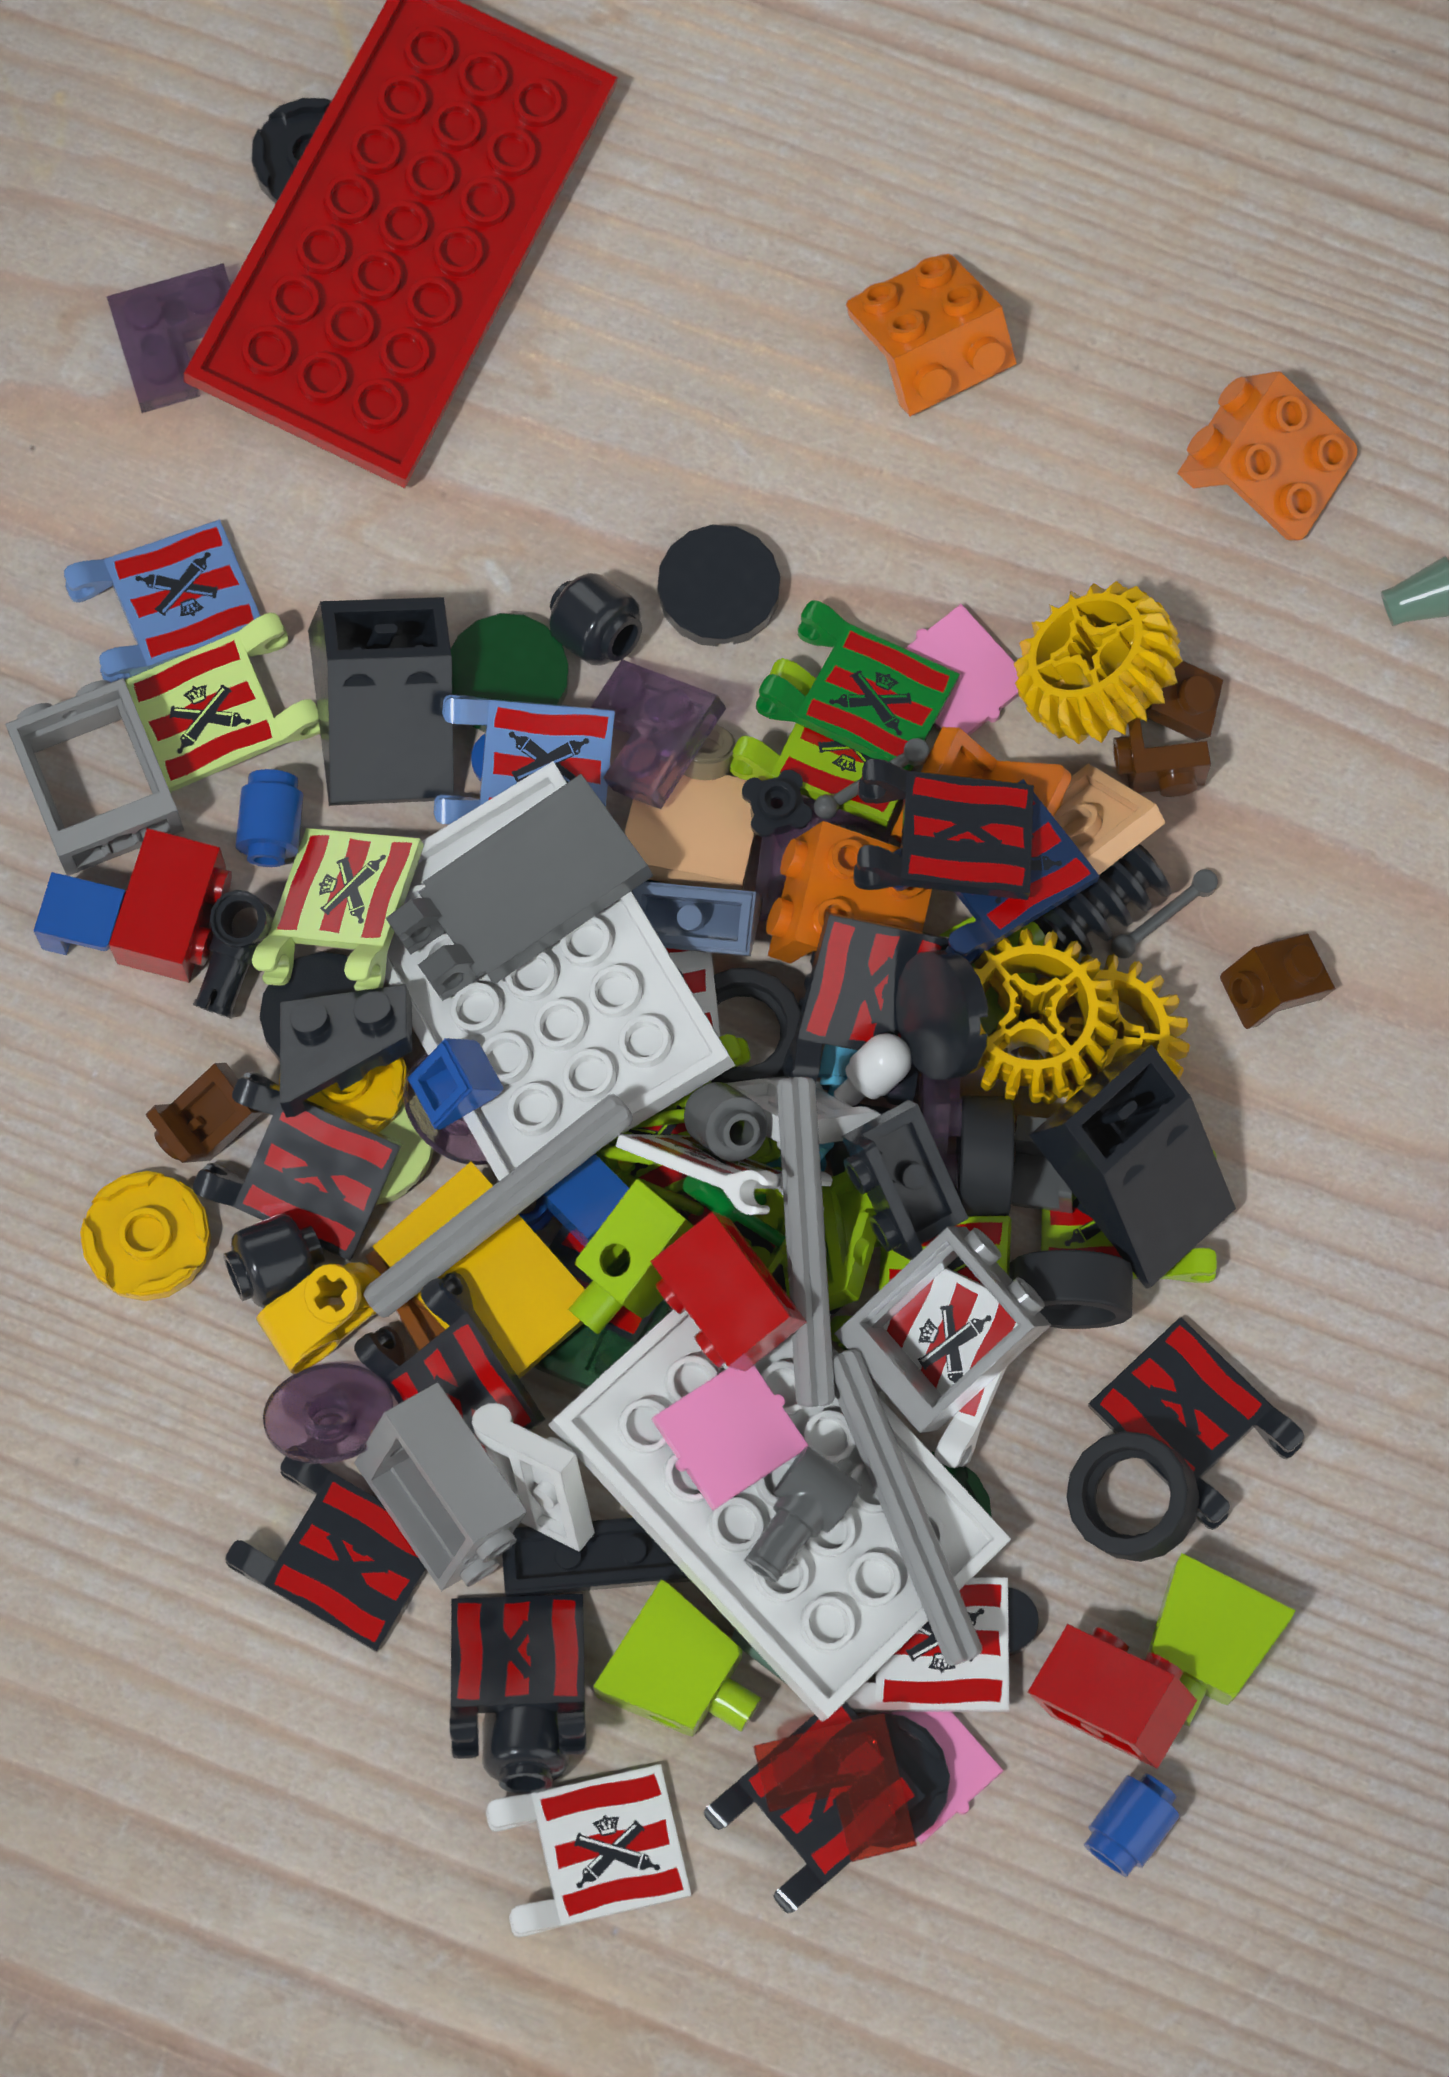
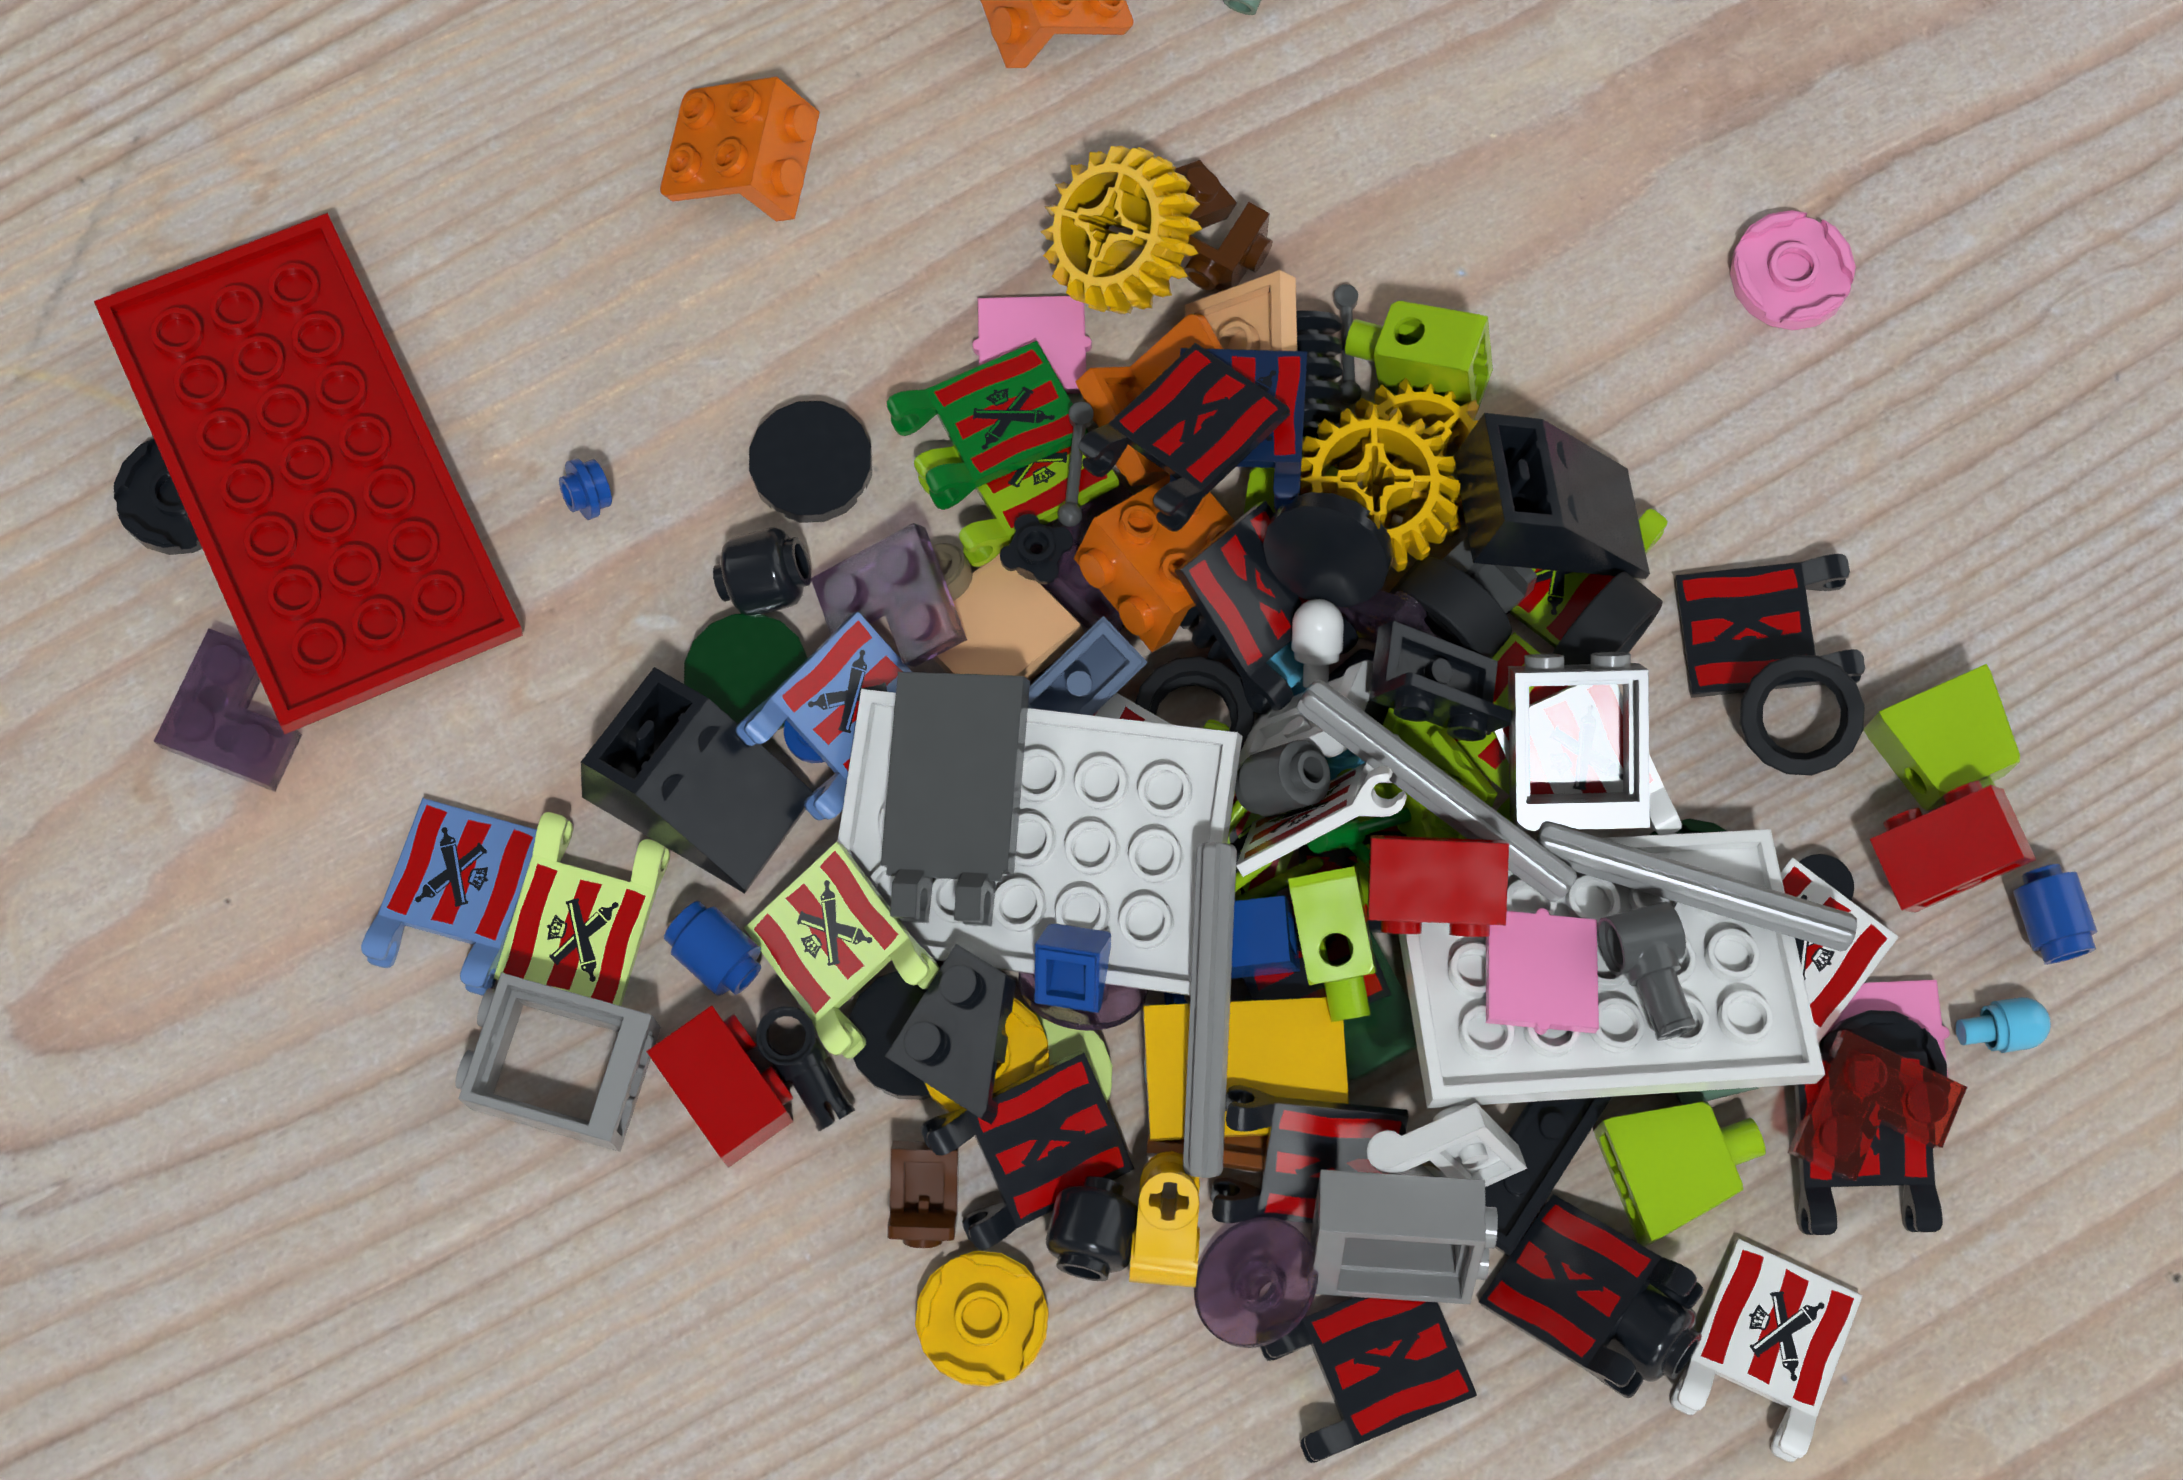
camera: 50 degrees left, 0 degrees up
(77, 914) = (671, 1163): blue panel -> none
(555, 438) = (585, 488): none -> blue plate
(1008, 1853) = (2007, 1025): none -> medium azure cylinder
(1198, 977) = (1426, 348): none -> lime torso
(1276, 979) = (1473, 287): reddish brown bracket -> none

